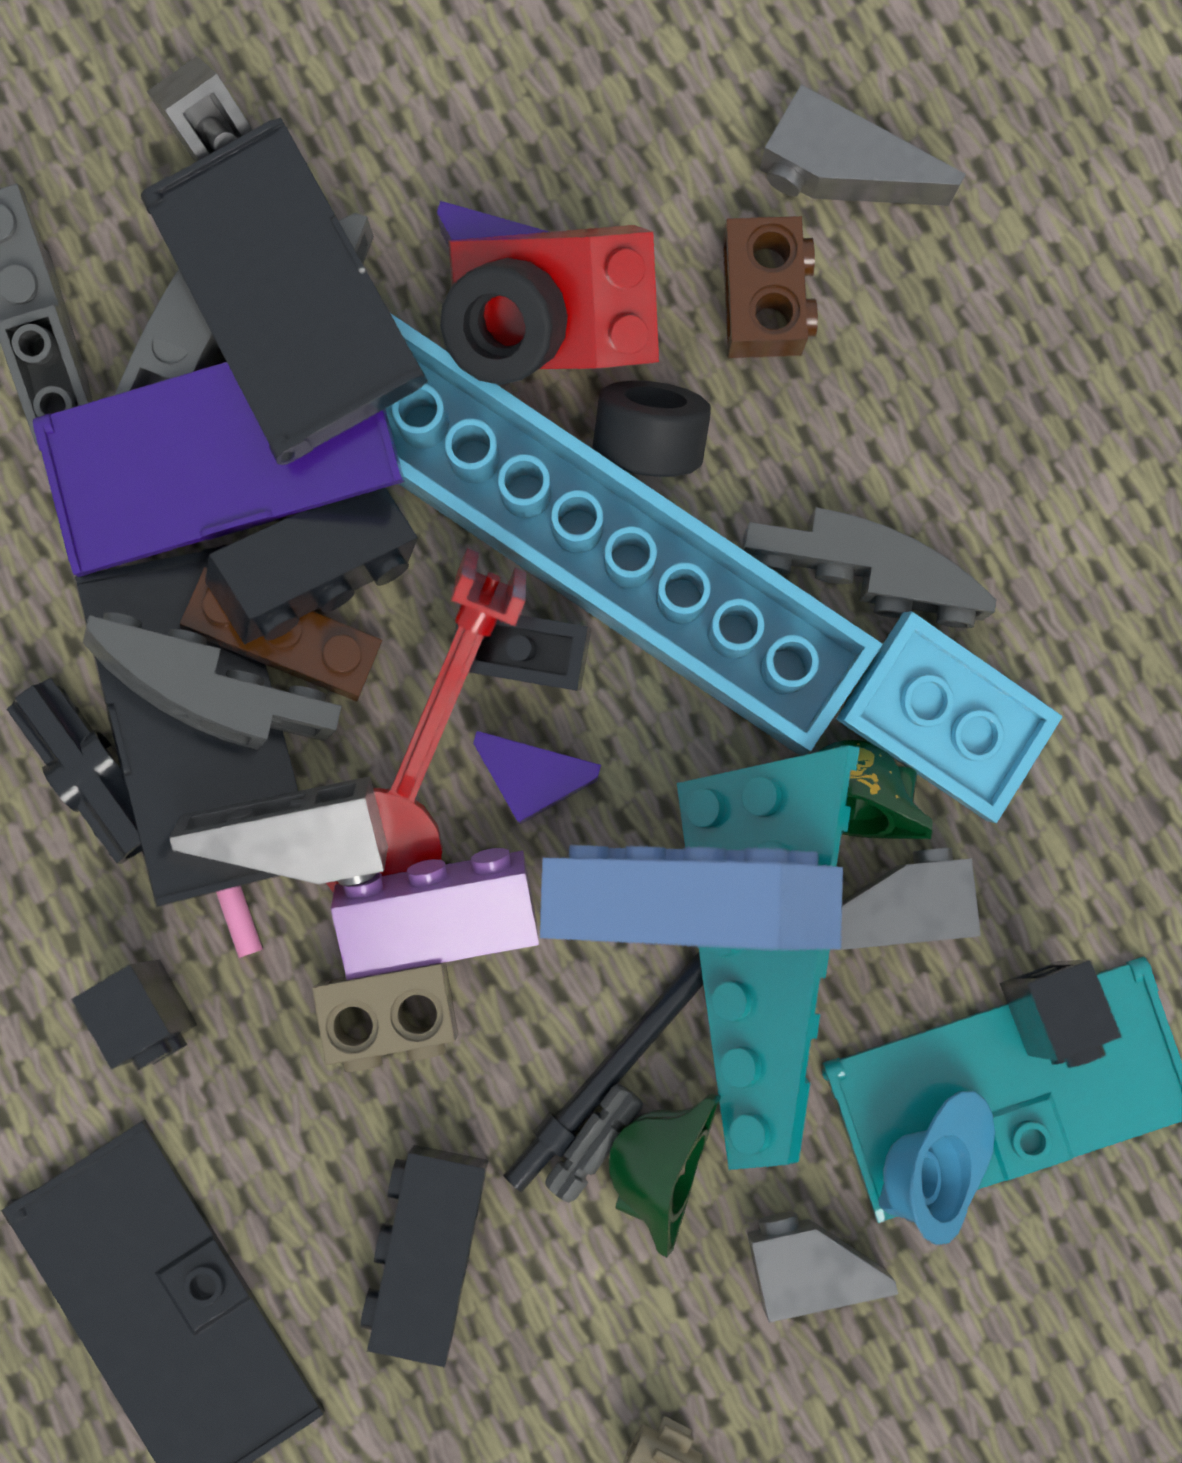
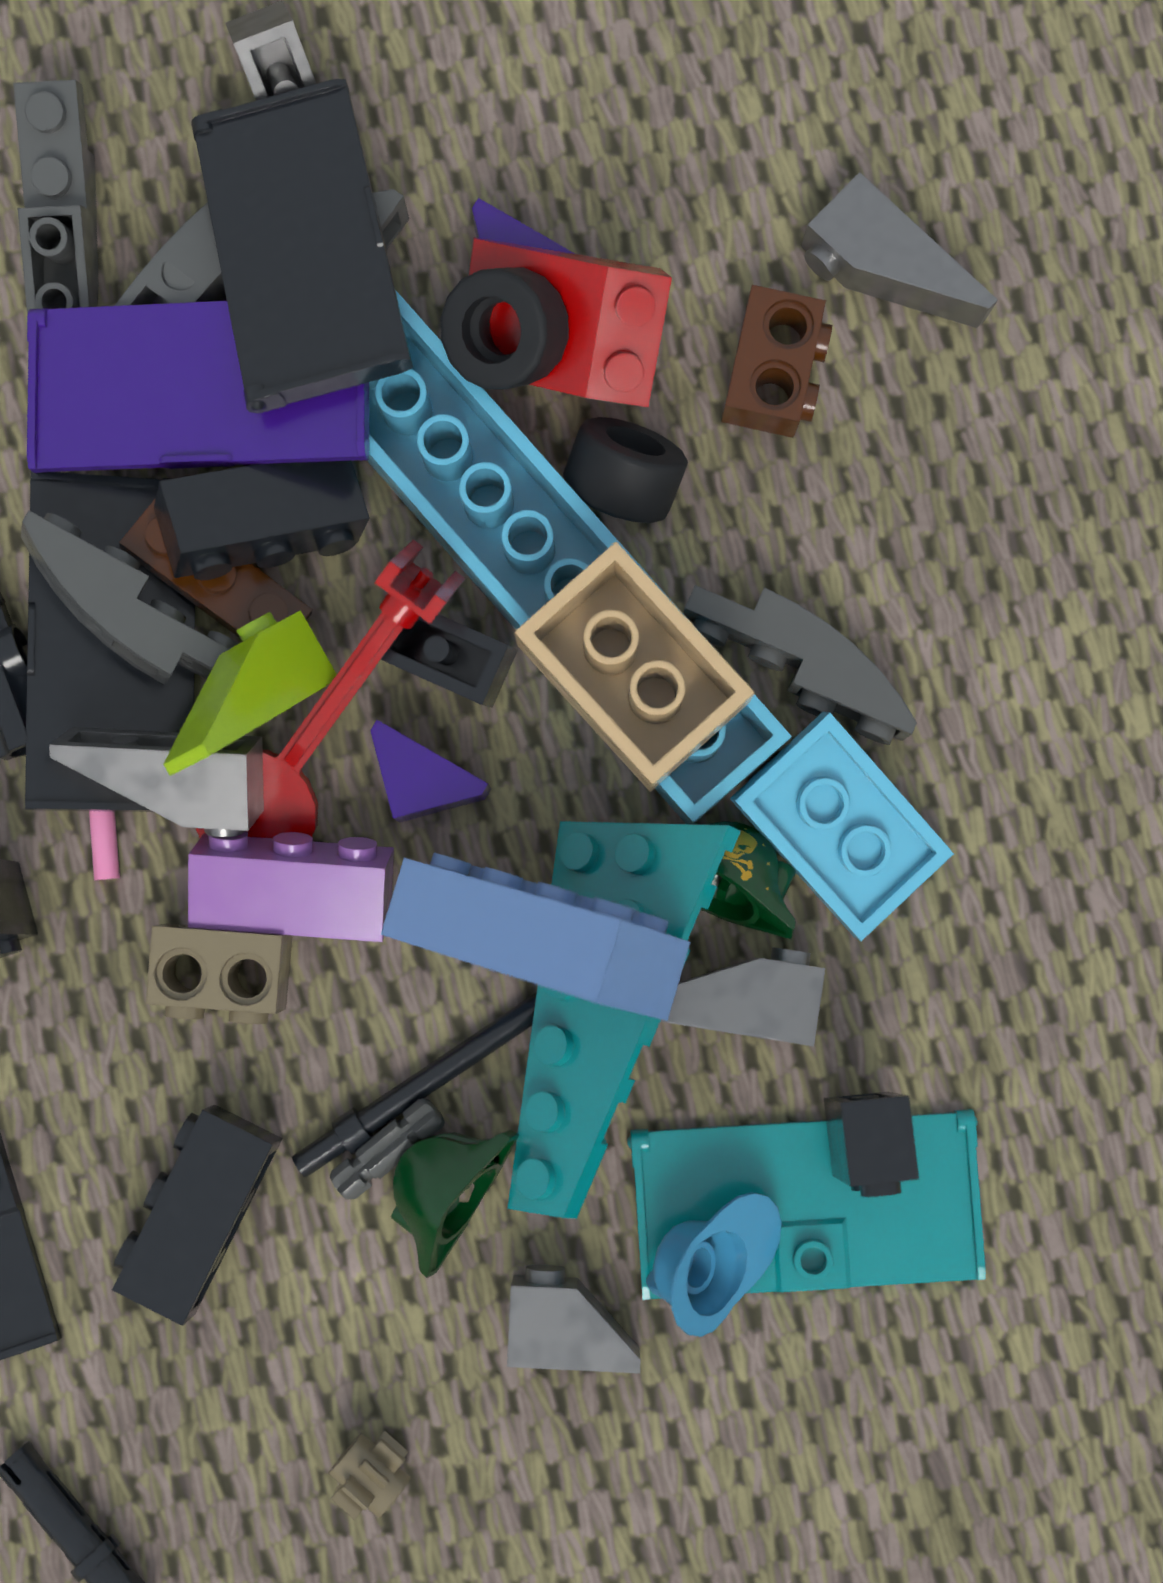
camera: 20 degrees right, 0 degrees up
(350, 731) = (251, 685): none -> lime slope
(718, 617) = (633, 666): none -> tan brick

